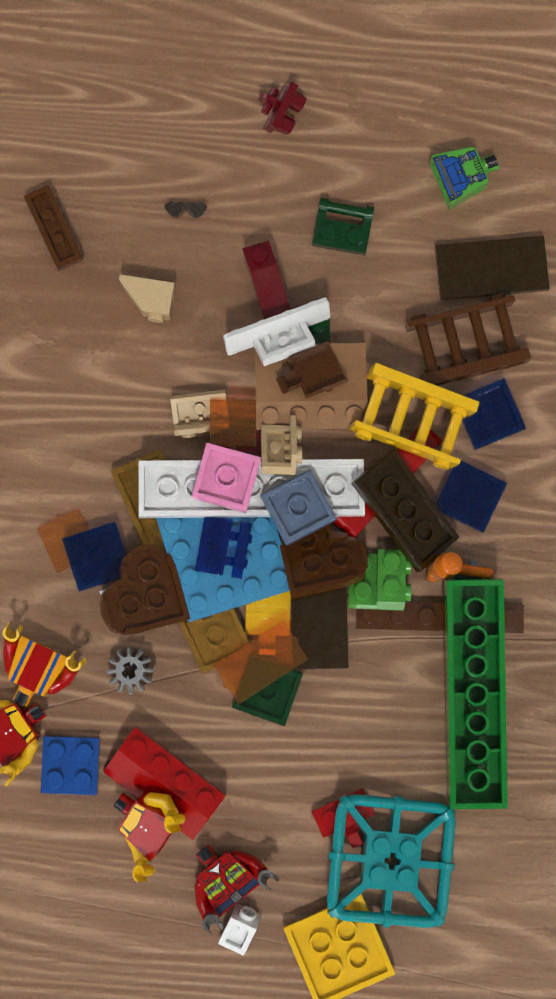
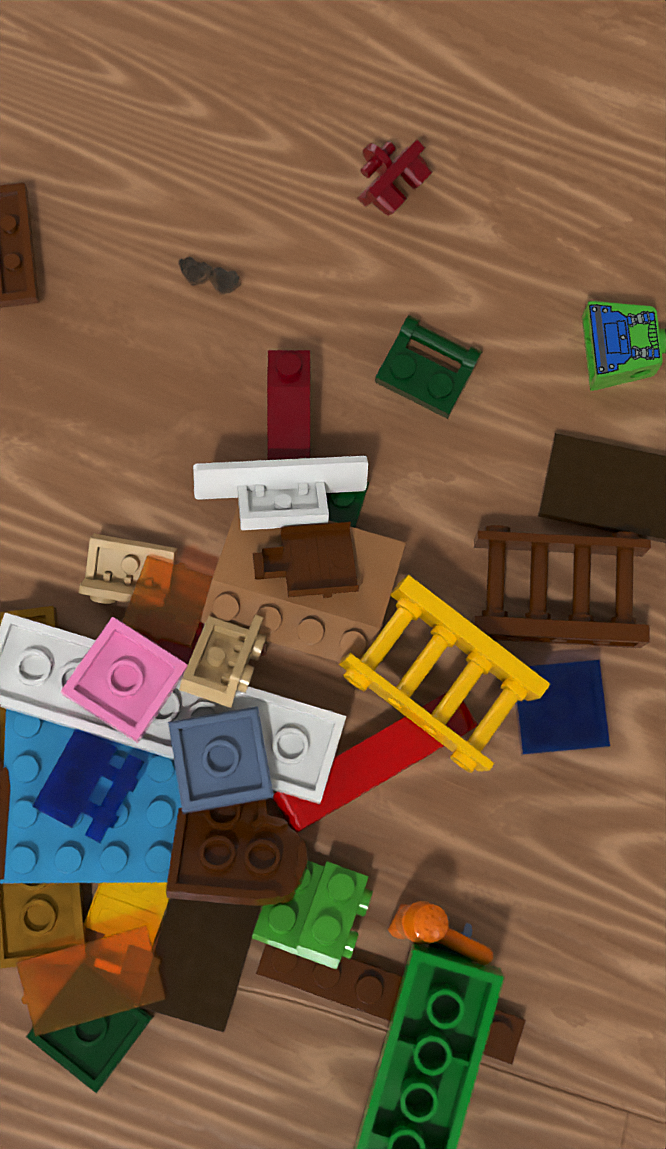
camera: 20 degrees right, 5 degrees down
(150, 296) = (116, 382): tan slope -> none
(405, 510) = (385, 815): dark brown tile -> none
(470, 496) = (493, 823): clear blue plate -> none

